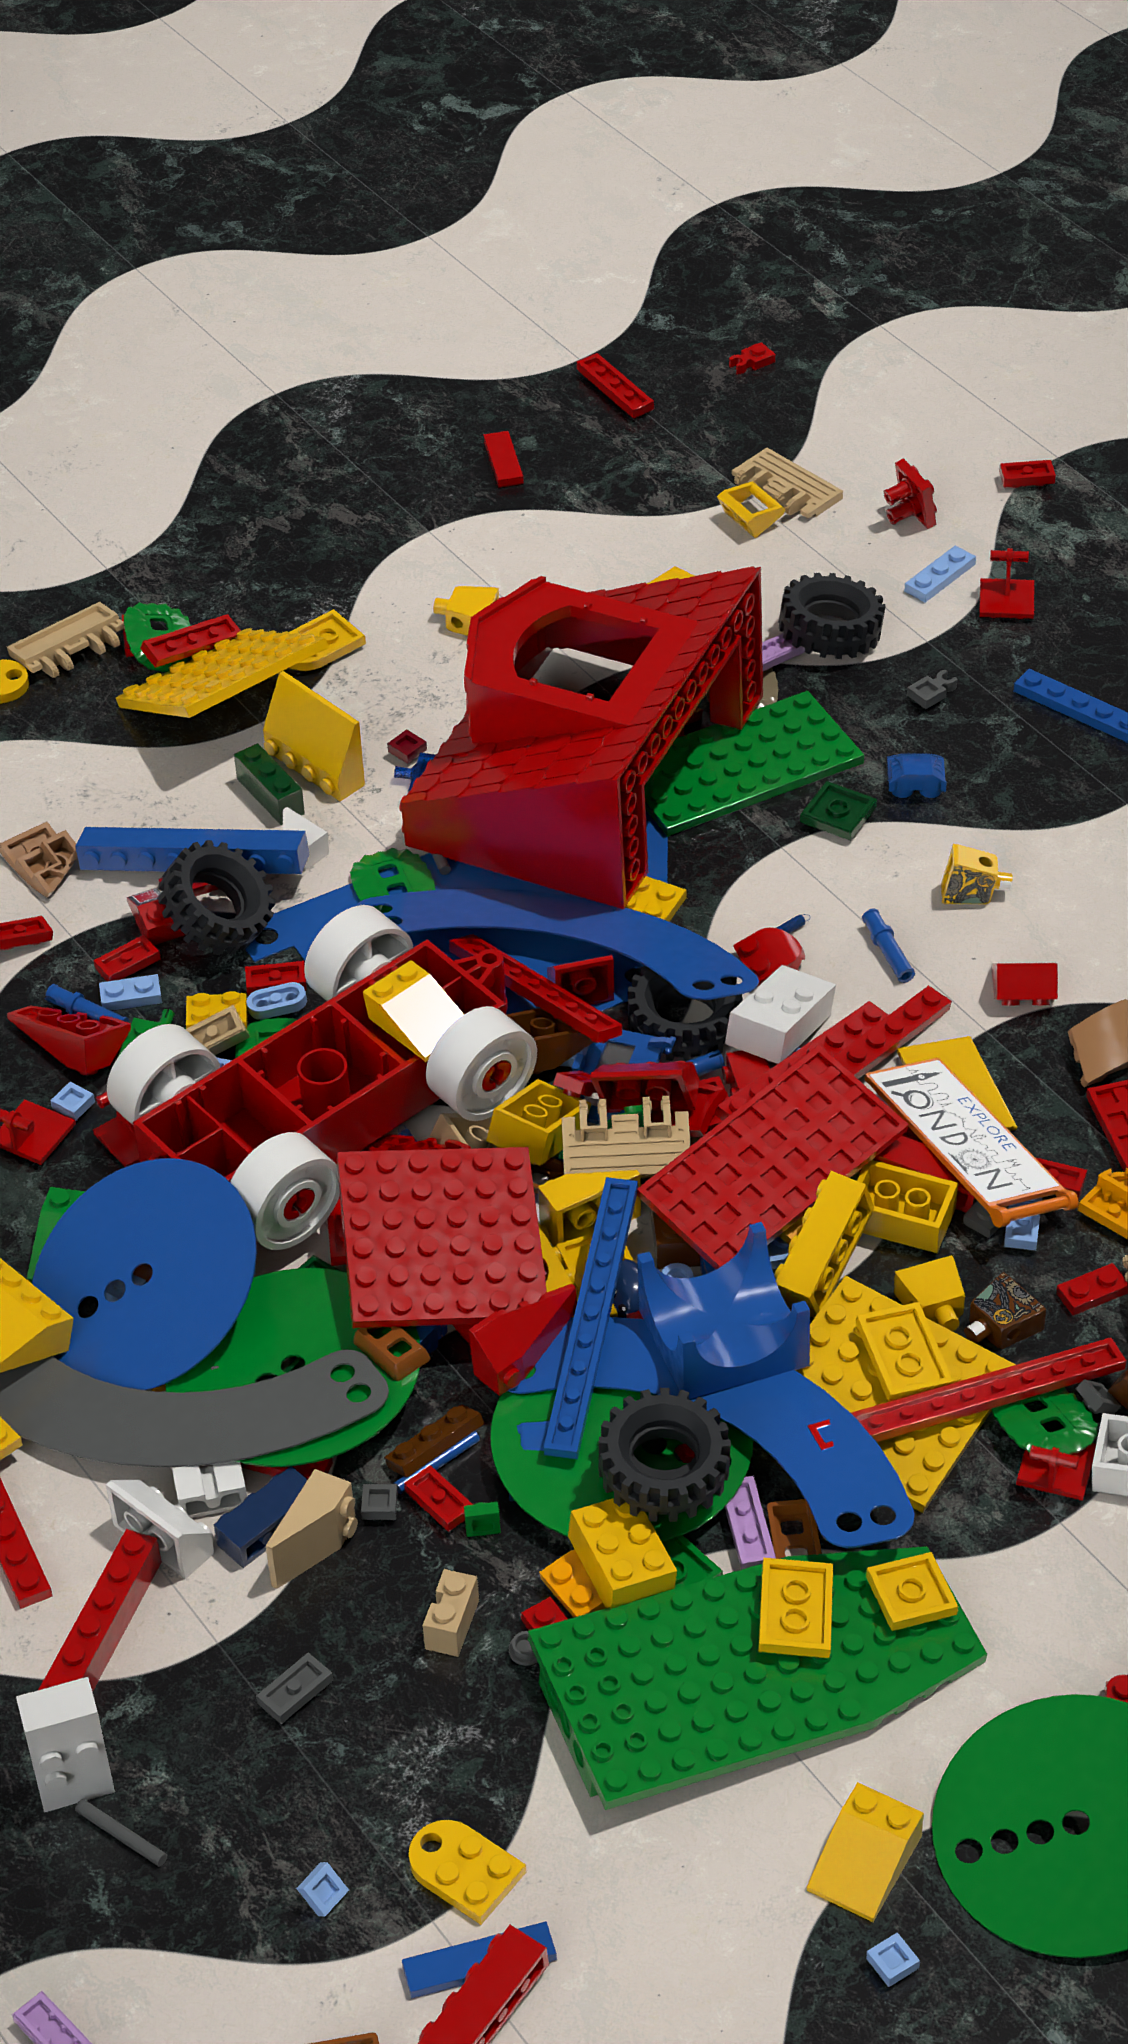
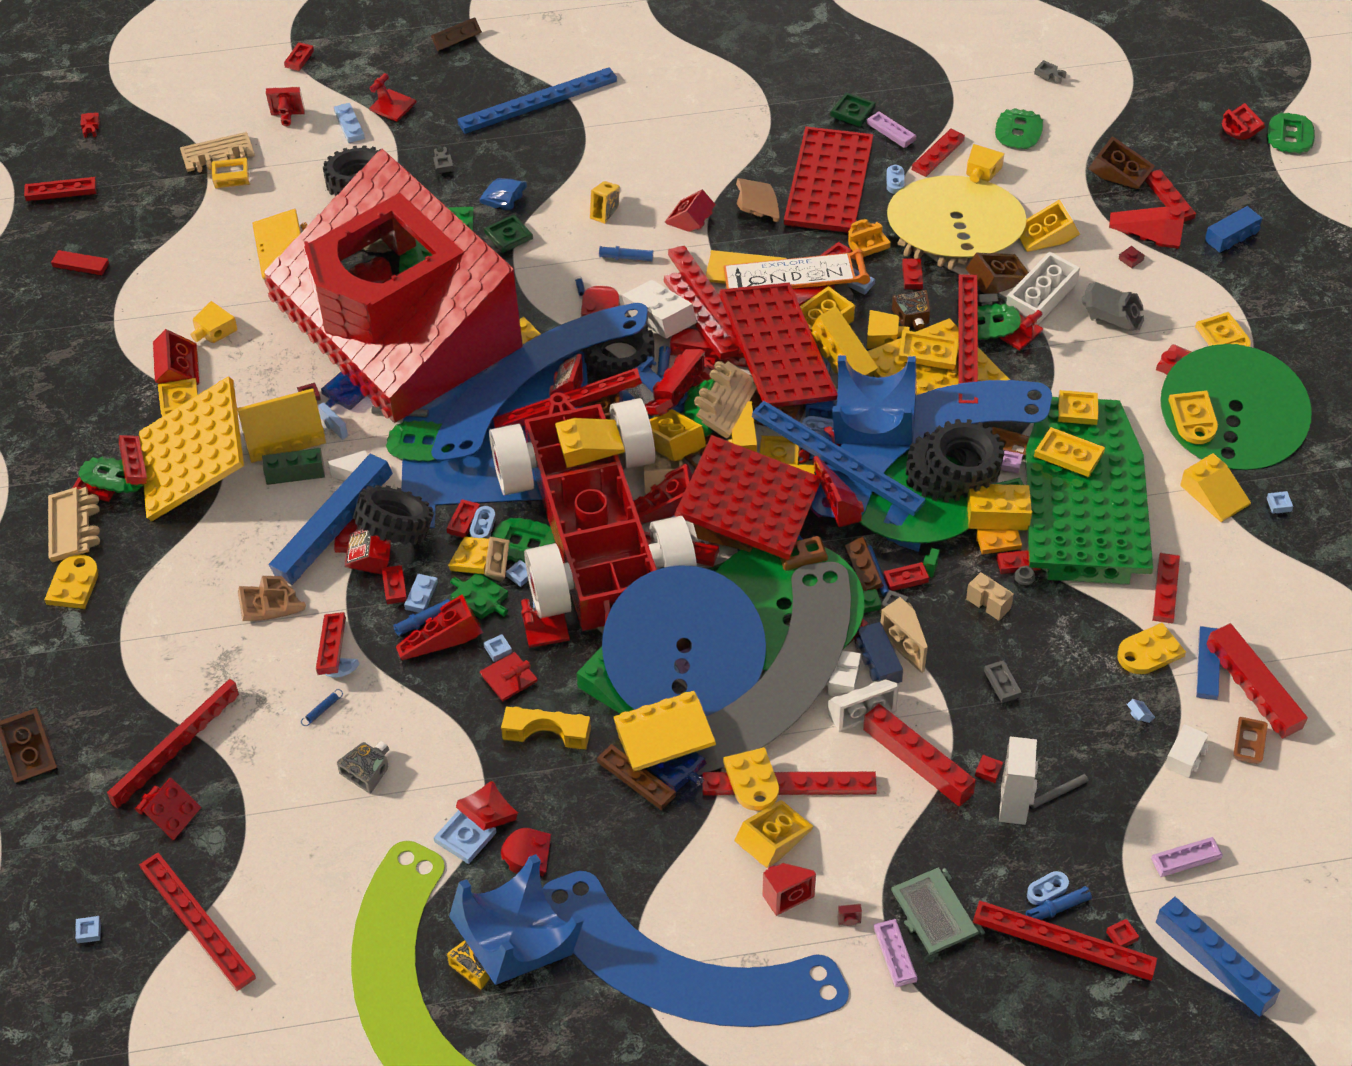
camera: 65 degrees left, 5 degrees up
(123, 1728) = (989, 769): none -> red plate
(270, 1977) = (1186, 751): none -> white brick
(371, 786) = (333, 421): none -> light blue plate
(372, 1470) = (871, 601): none -> green plate
(386, 606) = (174, 358): none -> red slope
(609, 1851) = (1166, 588): none -> red plate
(1007, 1764) = (1193, 414): none -> yellow plate

